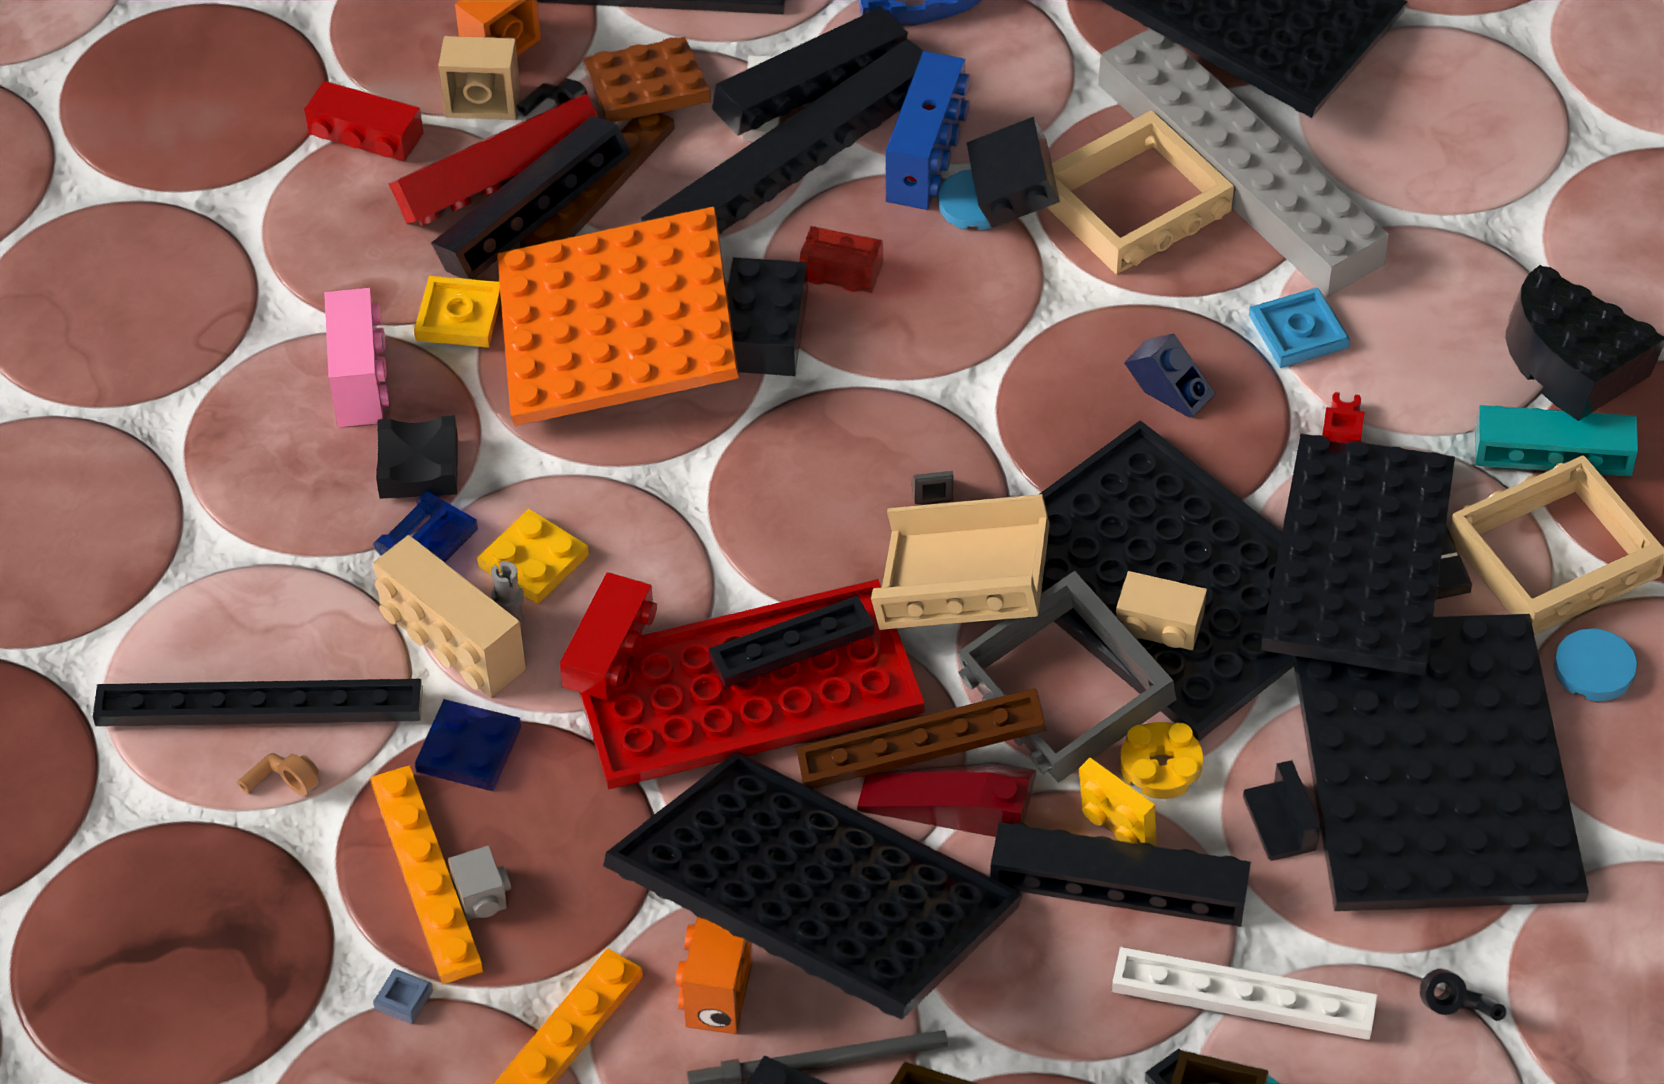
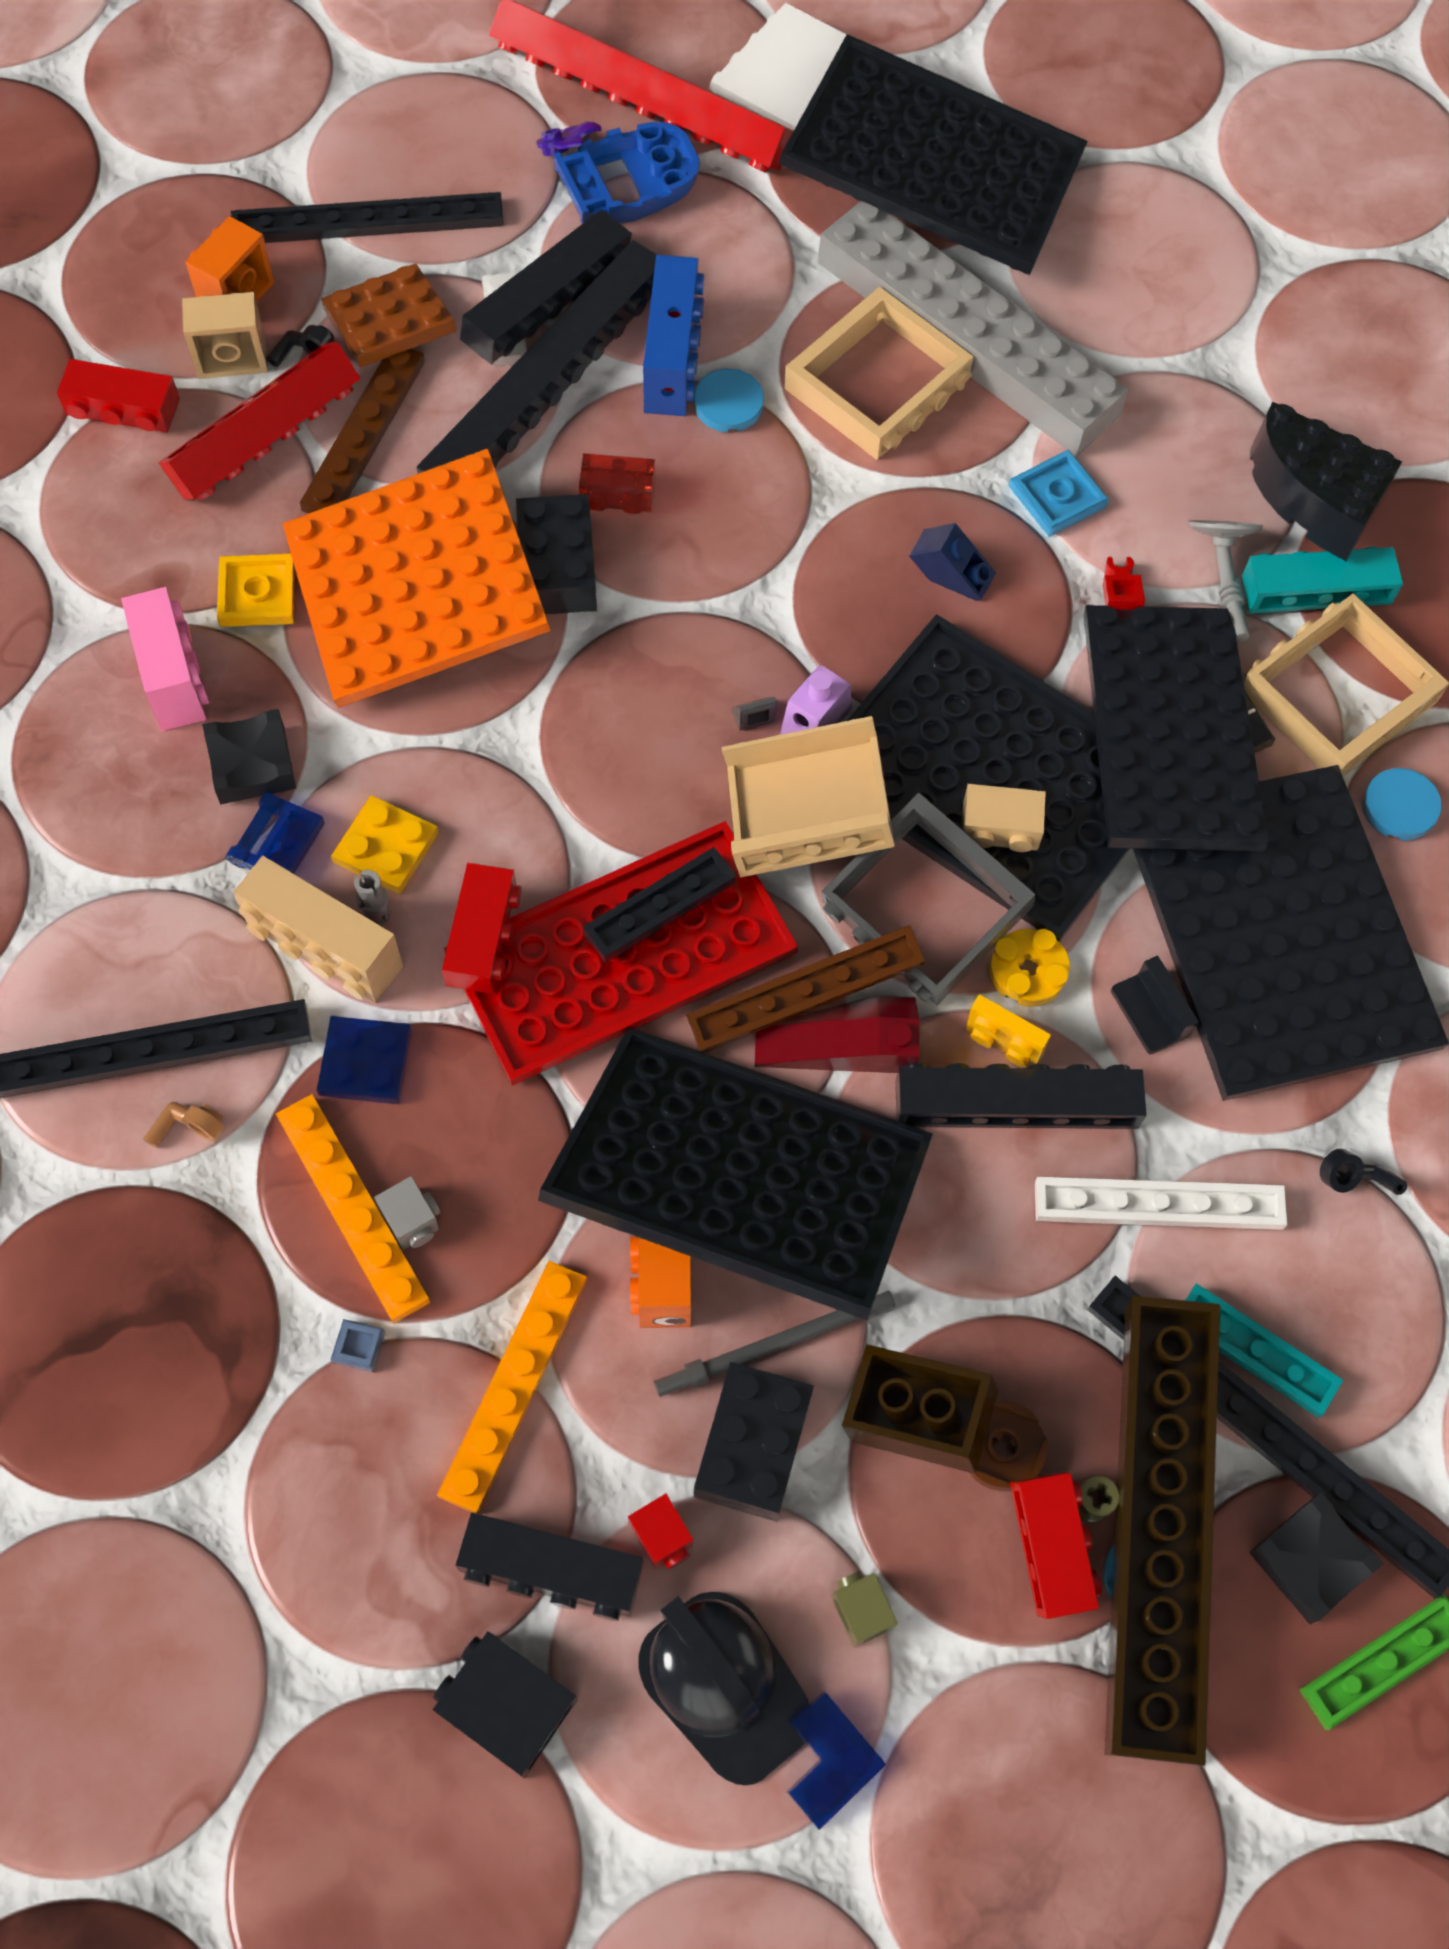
camera: 15 degrees left, 15 degrees up
(531, 198) = (303, 459): black brick -> none
(996, 475) = (819, 700): none -> lavender torso
(1012, 172) = (765, 371): black brick -> none
(1458, 440) = (1229, 591): none -> light grey dish

